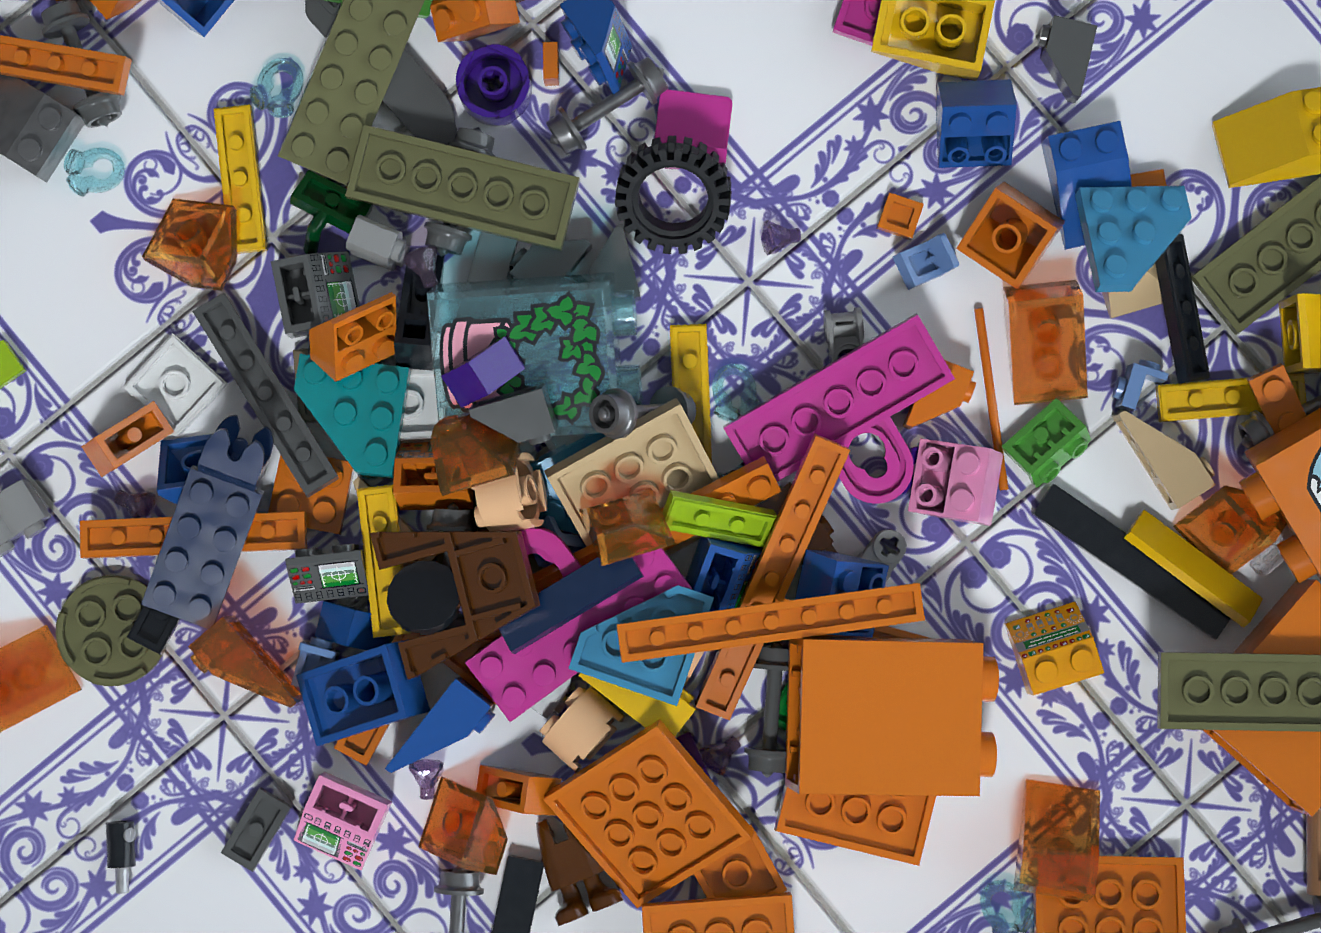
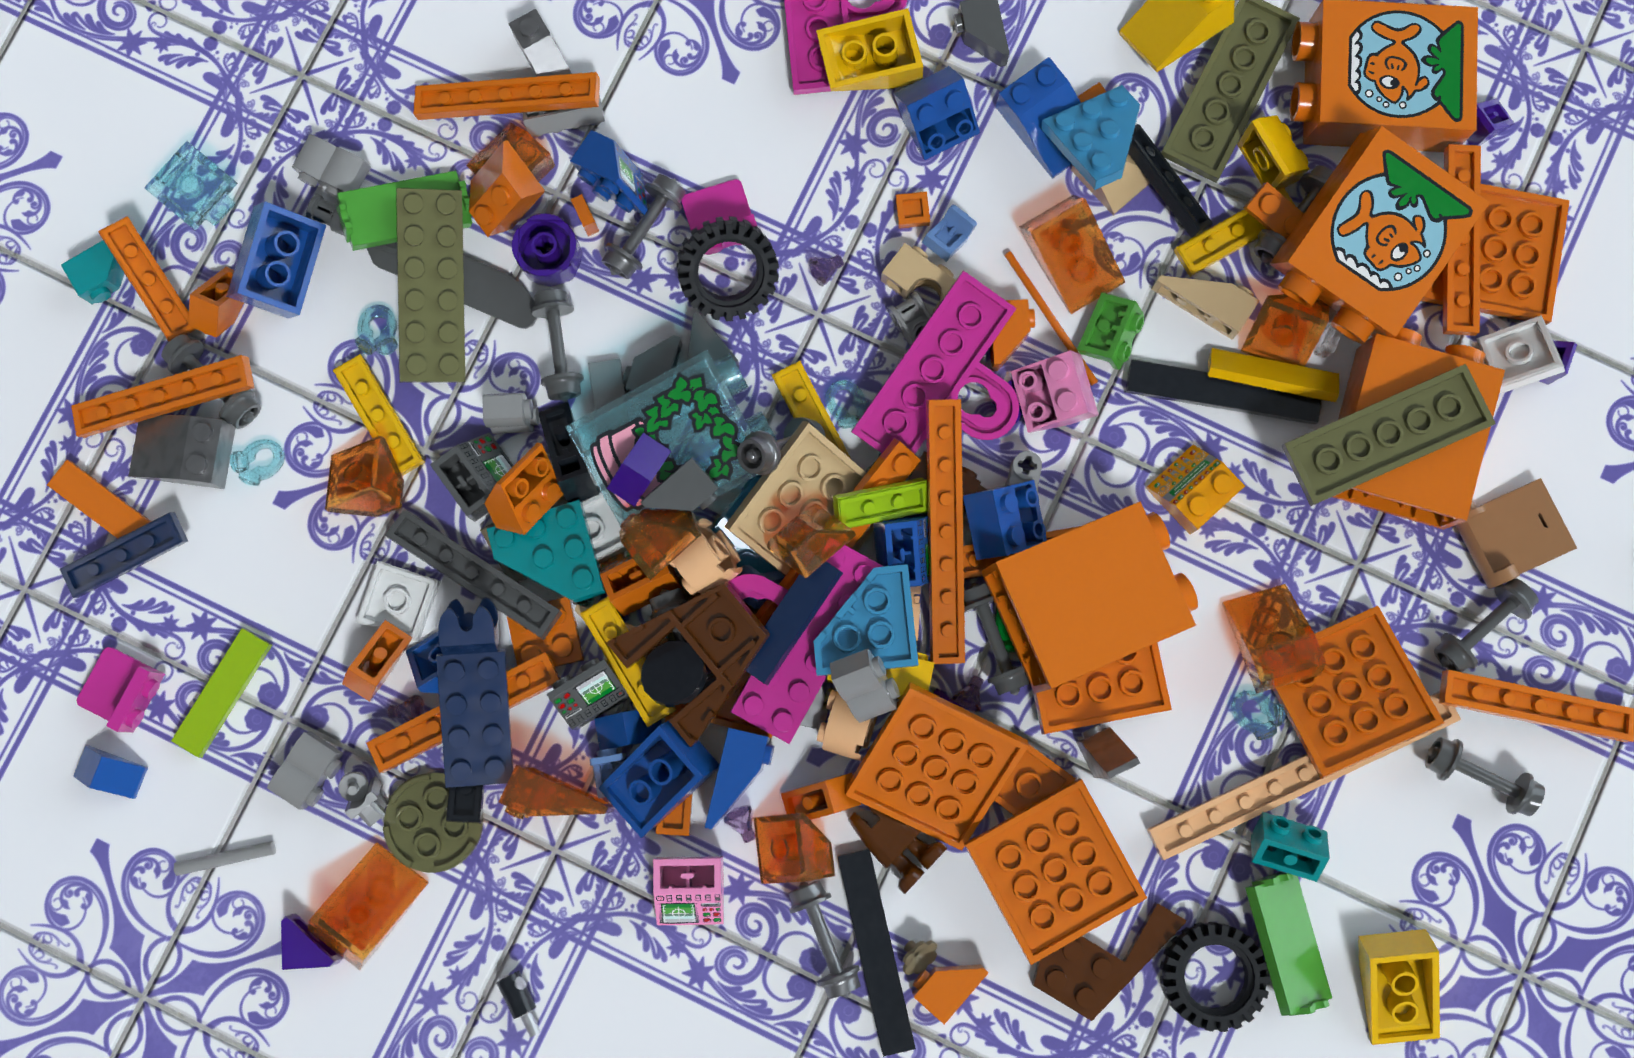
camera: 15 degrees left, 5 degrees down
(52, 575) = (362, 797): none -> light grey hips
(256, 829) = (622, 930): dark grey plate -> none
(328, 205) = (456, 402): dark green plate -> none
(423, 263) = (552, 412): clear purple rock -> none
(462, 187) = (557, 338): olive plate -> none
(611, 702) = (864, 685): none -> light grey brick
(770, 622) = (961, 562): orange plate -> none
(829, 879) = (1106, 752): none -> slope
(868, 282) = (913, 270): none -> tan arch
(1010, 234) = (1005, 183): orange slope -> none
(1129, 387) = (1154, 258): medium blue bracket -> none

